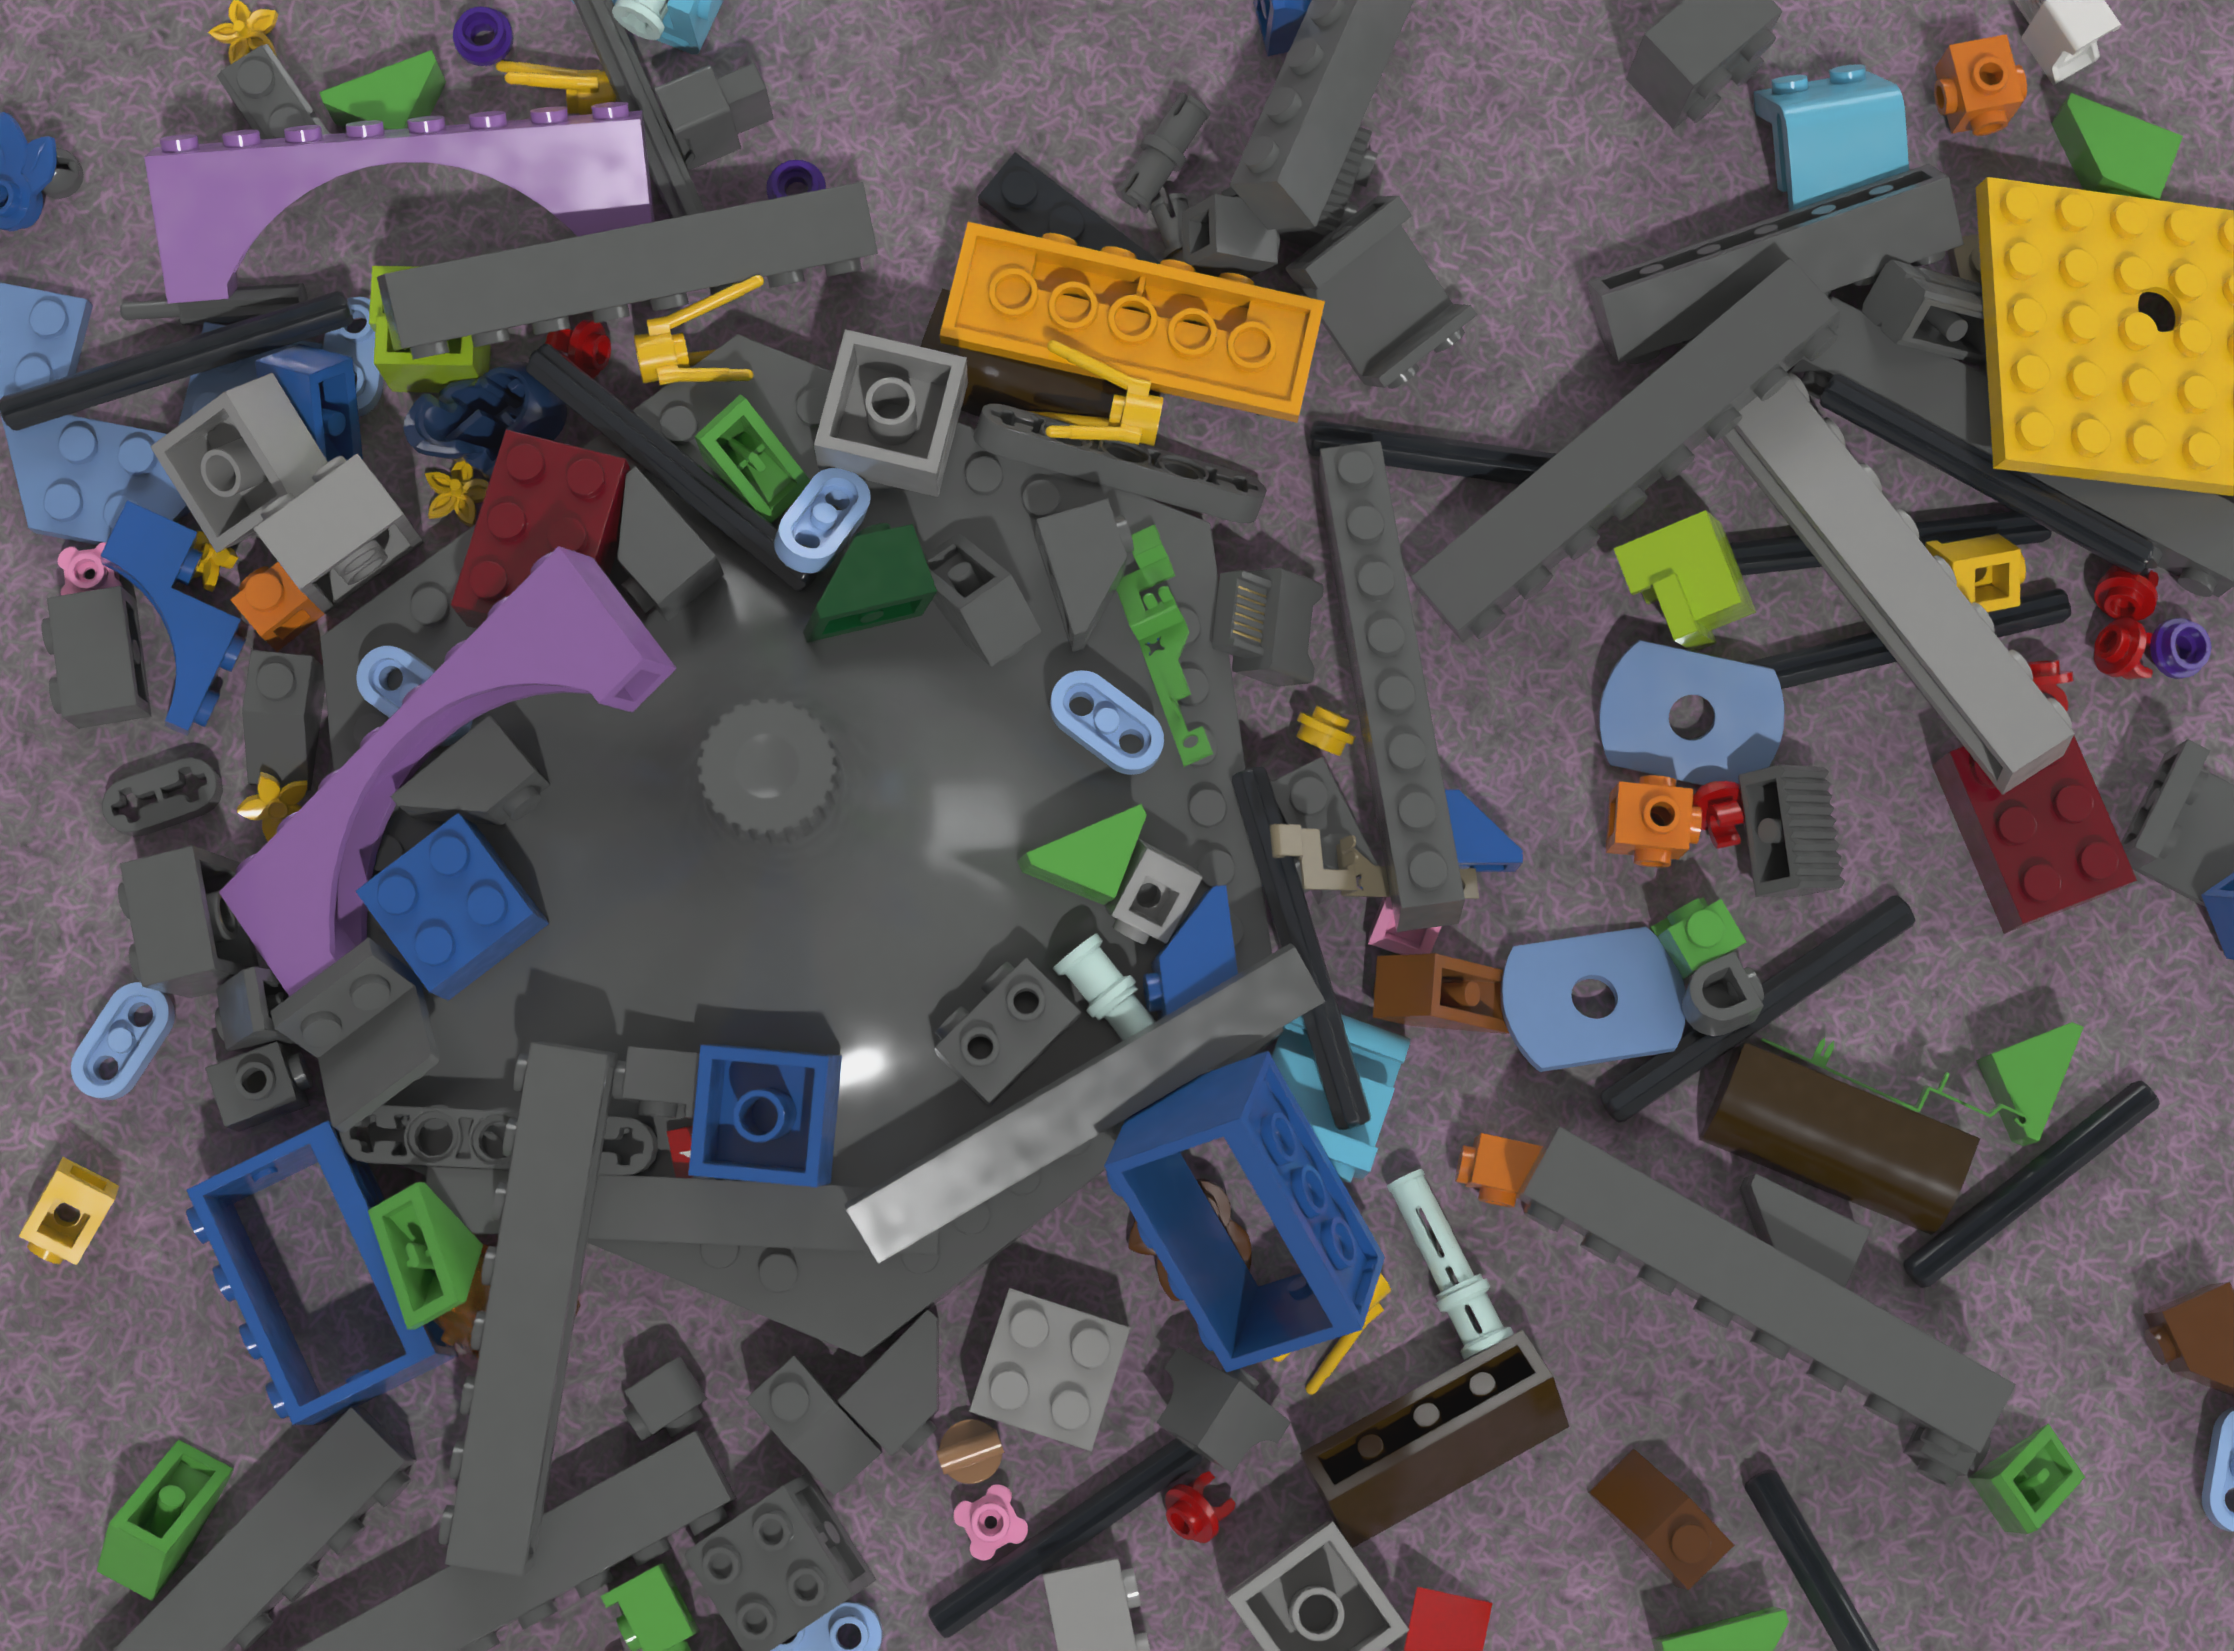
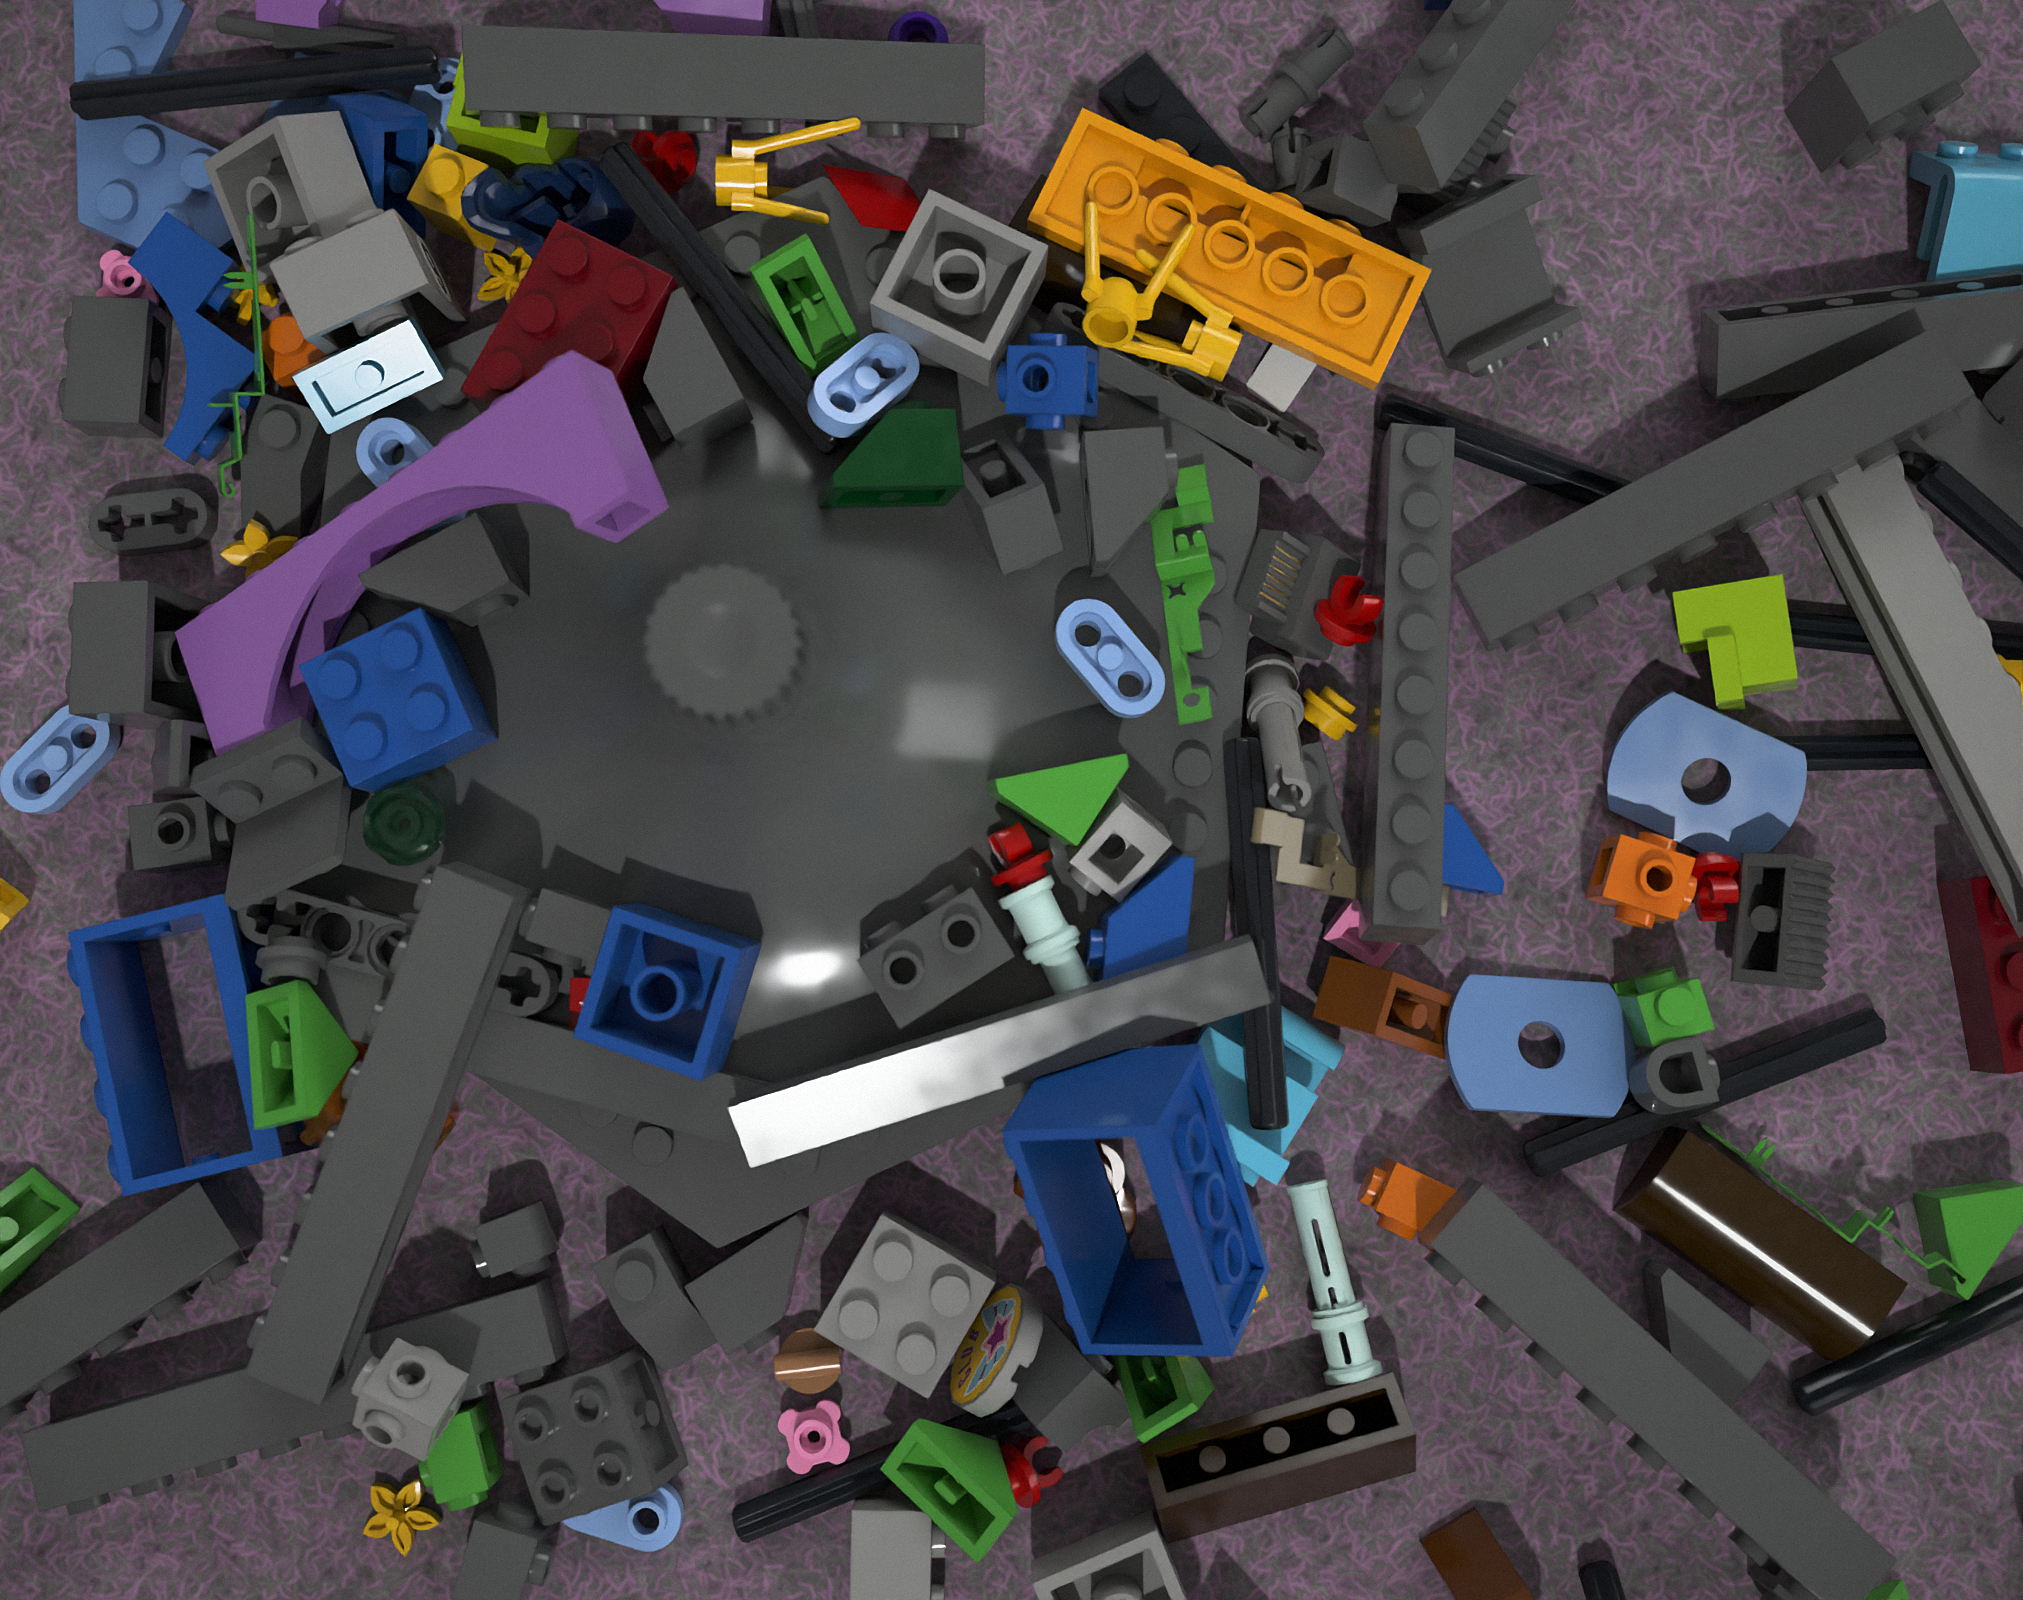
camera: 15 degrees right, 5 degrees up
(235, 701) = (250, 282): none -> bright green piece
(354, 610) = (369, 374): none -> plate
(379, 427) = (439, 194): none -> yellow brick
(405, 1166) = (291, 960): none -> dark grey plate
(461, 1015) = (384, 821): none -> clear green plate
(602, 1555) = (407, 1398): none -> light grey brick
(793, 344) = (876, 198): none -> red sticker
(1015, 480) = (1071, 383): none -> blue brick
(1038, 396) = (1114, 302): none -> yellow plant
(1059, 920) = (1016, 854): none -> red plate
(1133, 1525) = (955, 1482): none -> bright green slope
(1138, 1401) = (993, 1347): none -> tile
(1208, 429) = (1279, 378): none -> white sticker
(1274, 743) = (1275, 715): none -> light grey pin
(1305, 1389) = (1161, 1390): none -> bright green slope
(1321, 633) = (1347, 616): none -> red plate

